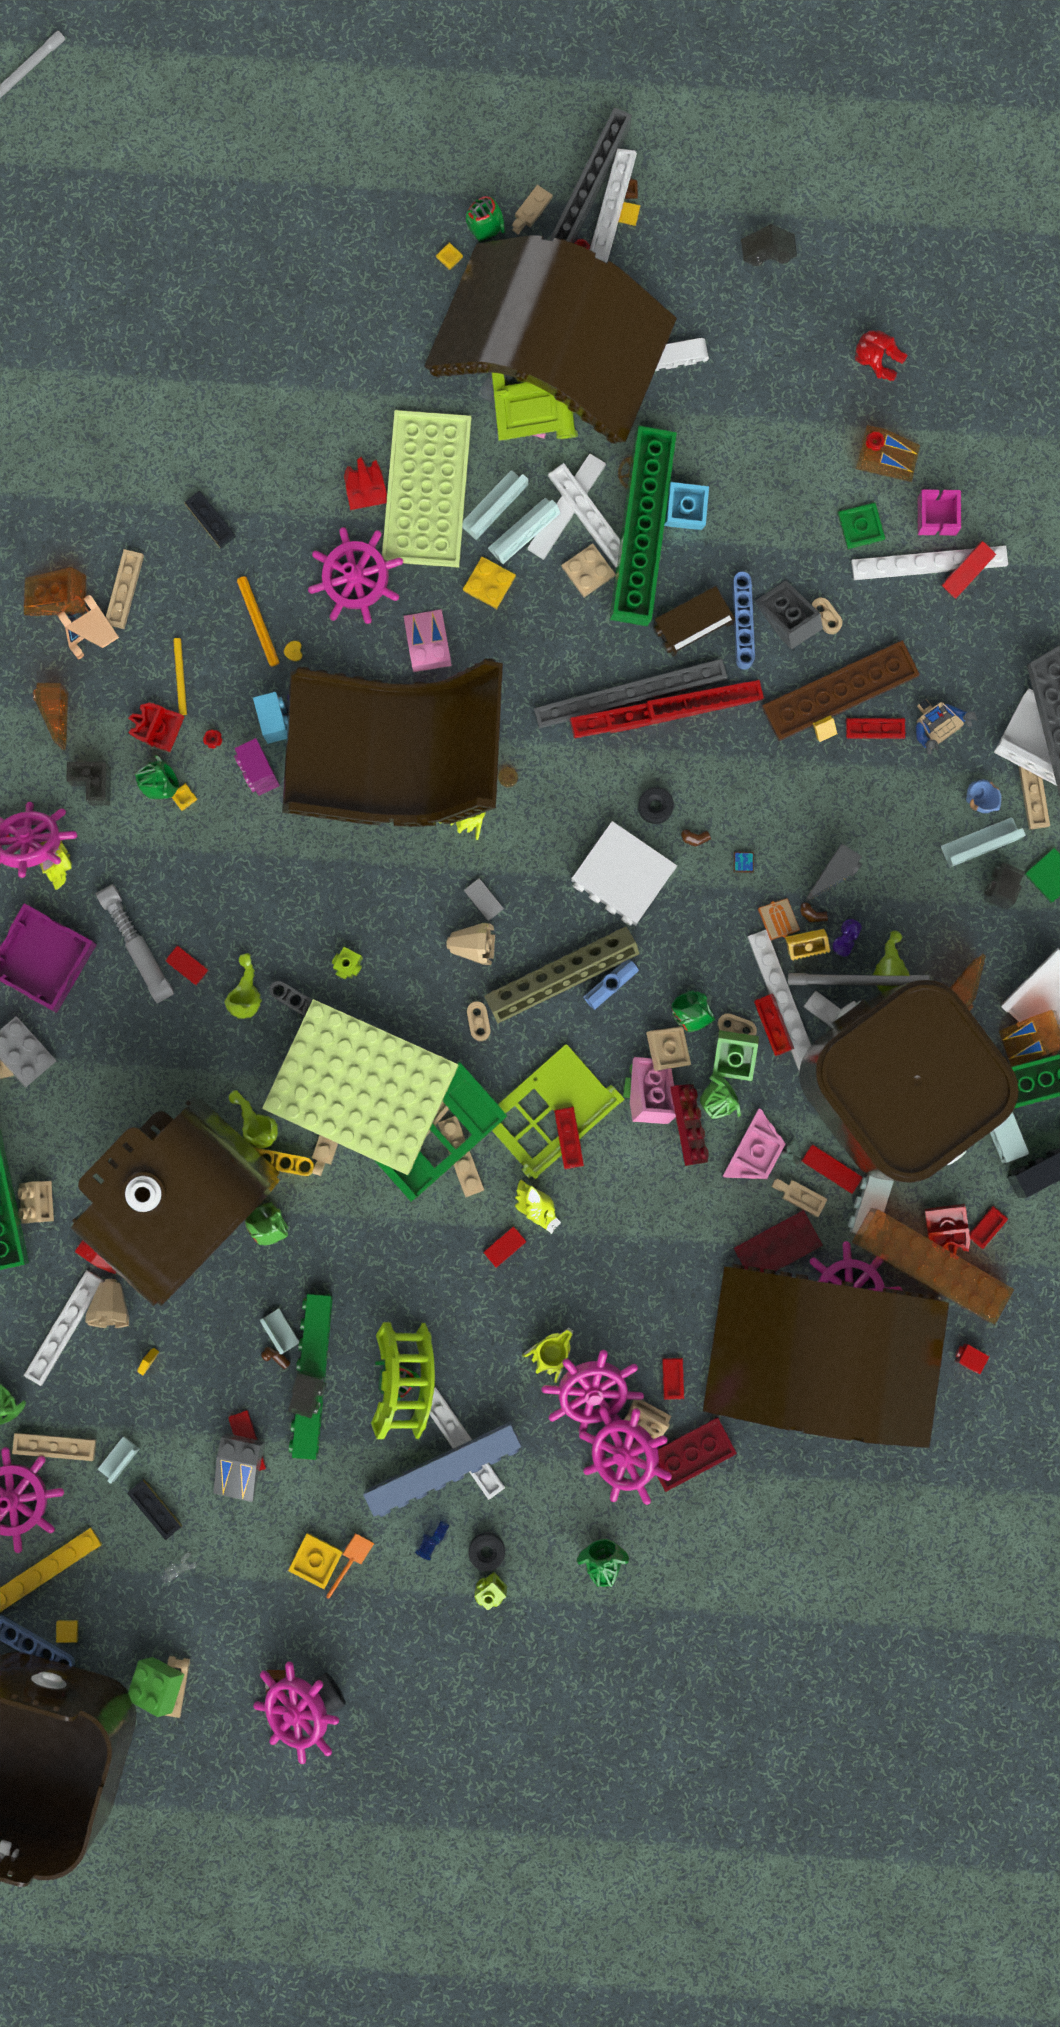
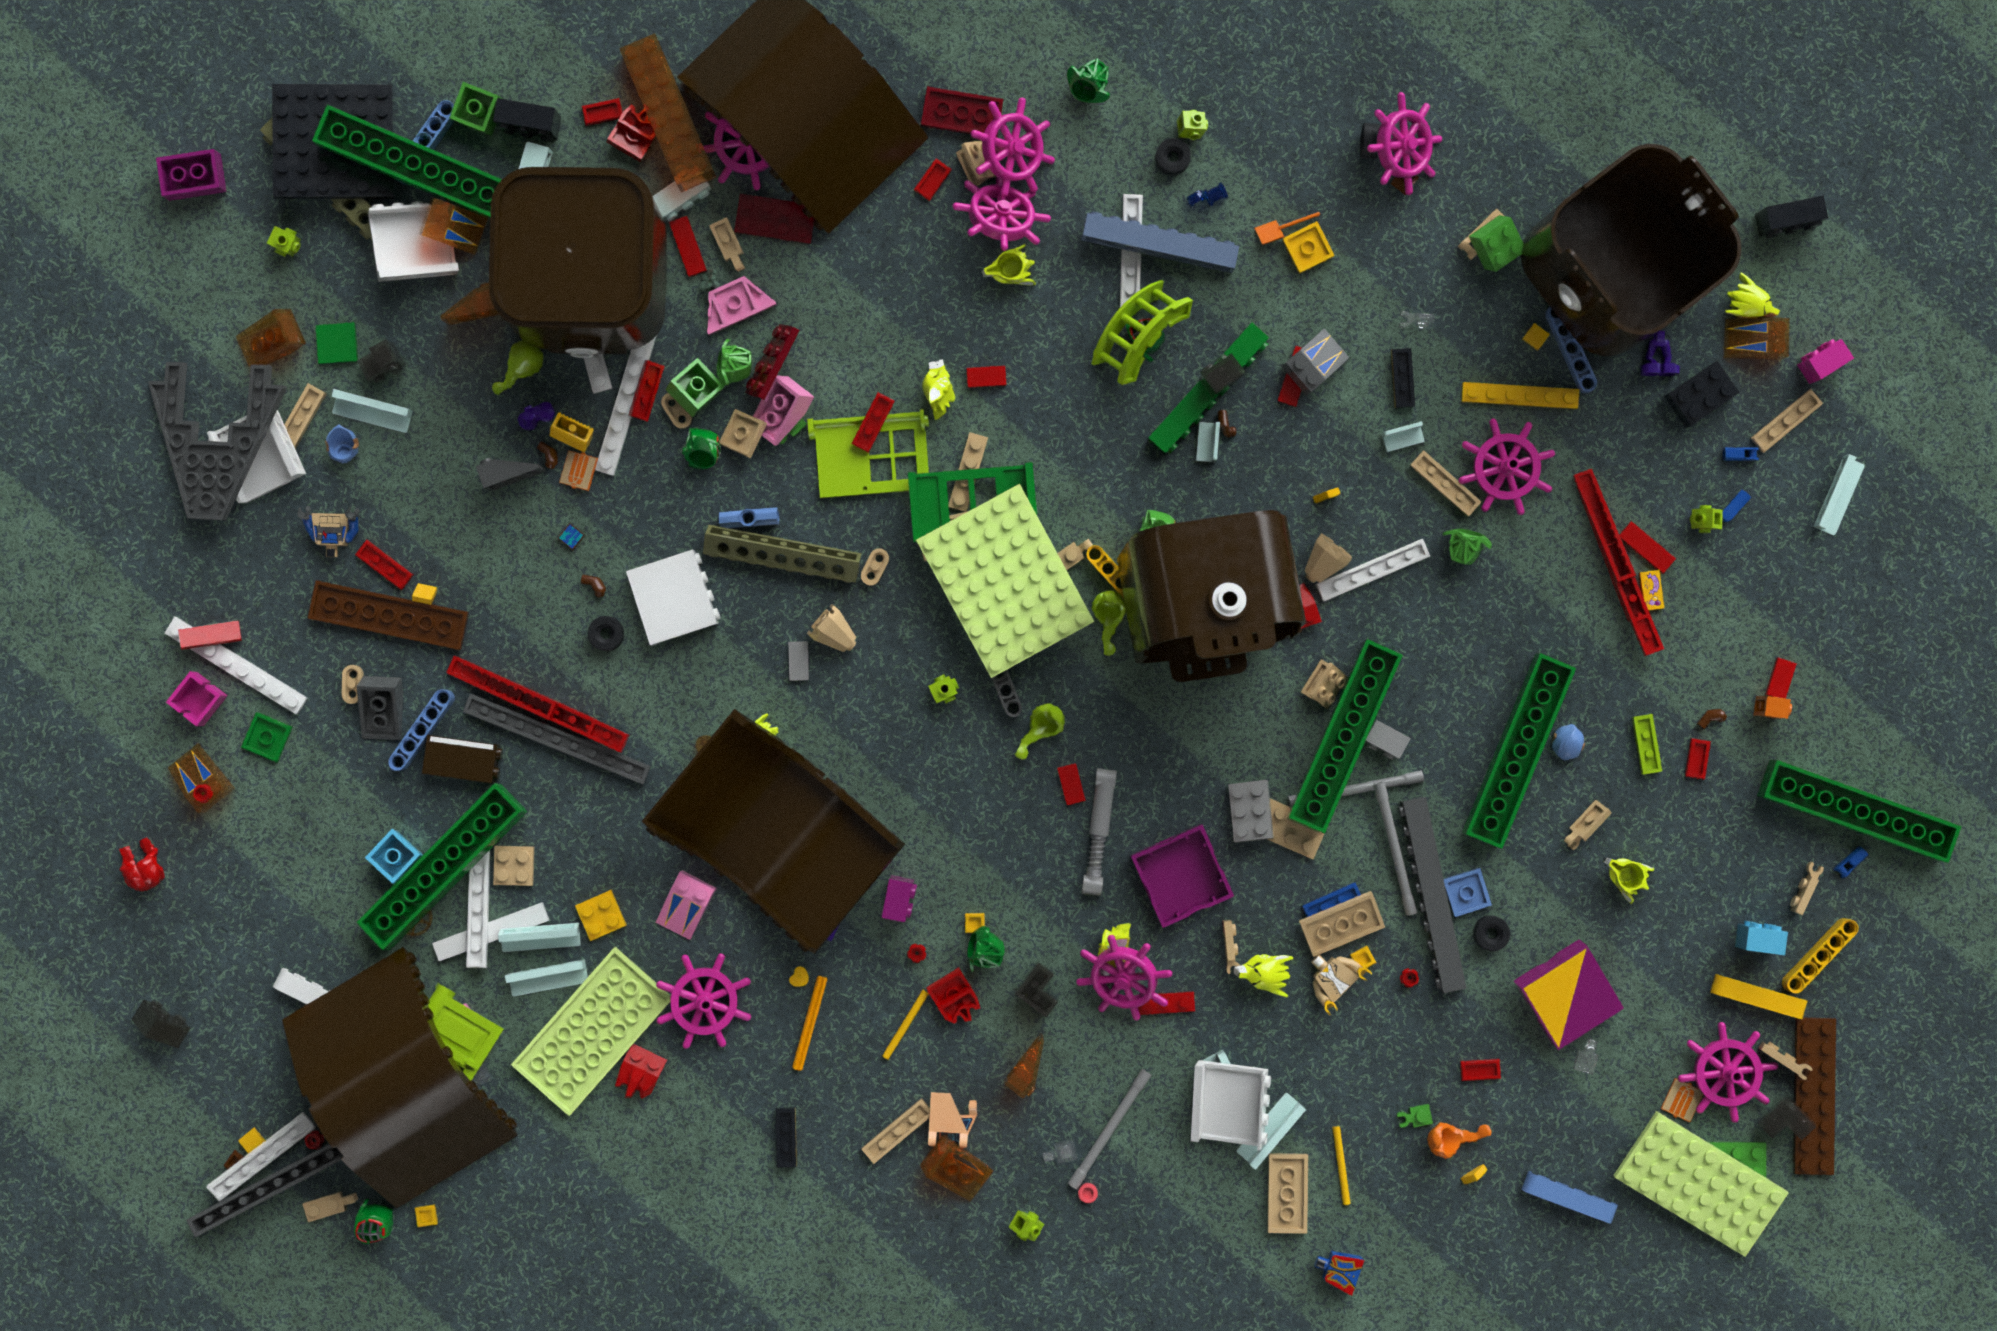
camera: 145 degrees left, 5 degrees up
(271, 717) = (857, 931): medium azure brick -> none
(805, 979) = (594, 407): light grey piece -> none
(971, 1358) = (692, 23): red brick -> none

